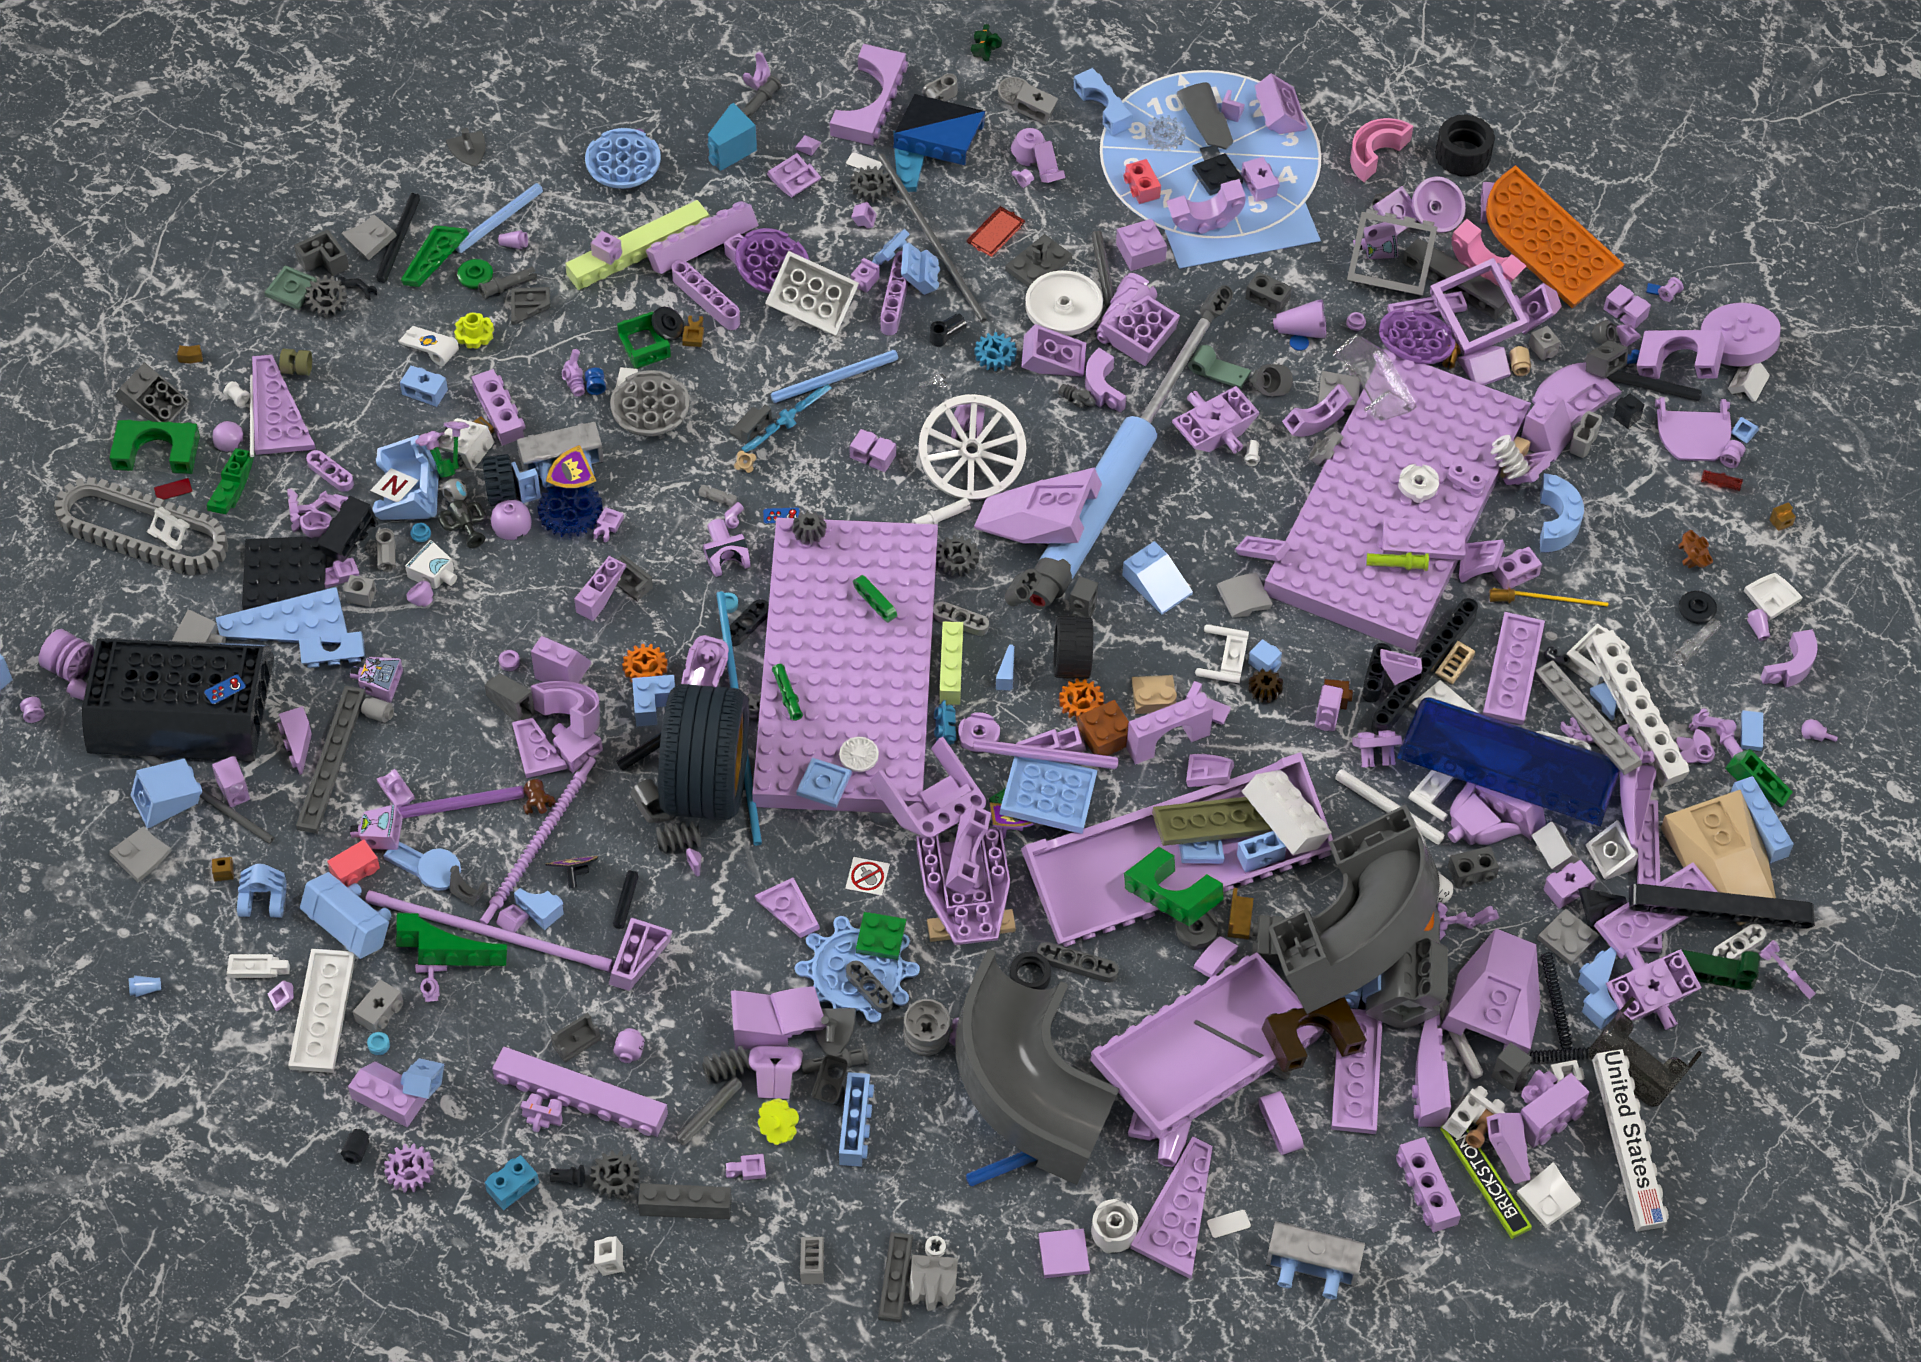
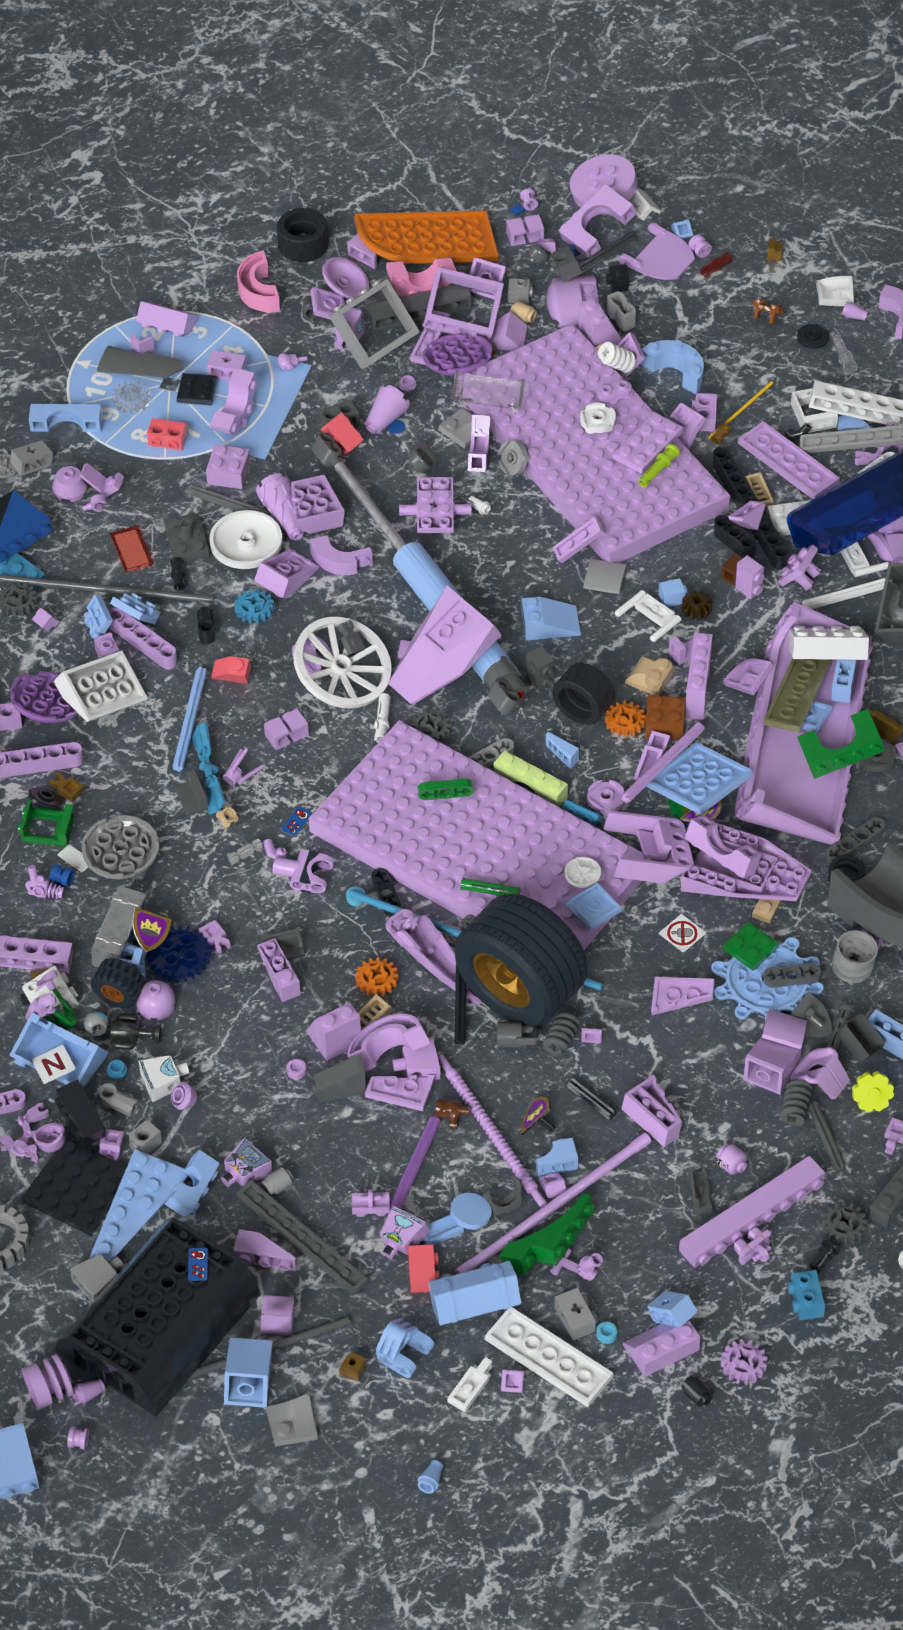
camera: 55 degrees left, 5 degrees down
(616, 686) = (371, 1006): none -> tan slope
(649, 694) = (411, 987): light blue brick -> none
(794, 440) = (234, 773): none -> lavender plant
(809, 527) = (343, 796): dark grey gear -> none
(909, 377) = (232, 669): none -> coral slope
(989, 278) = (177, 574): none -> black pin
(998, 439) = (351, 639): none -> dark grey plate
(1080, 397) = (342, 577): dark grey piece -> none
(1206, 365) = (385, 484): sand green door -> none
(1244, 304) = (343, 433): none -> coral brick
(1305, 220) = (289, 361): none -> lavender piece

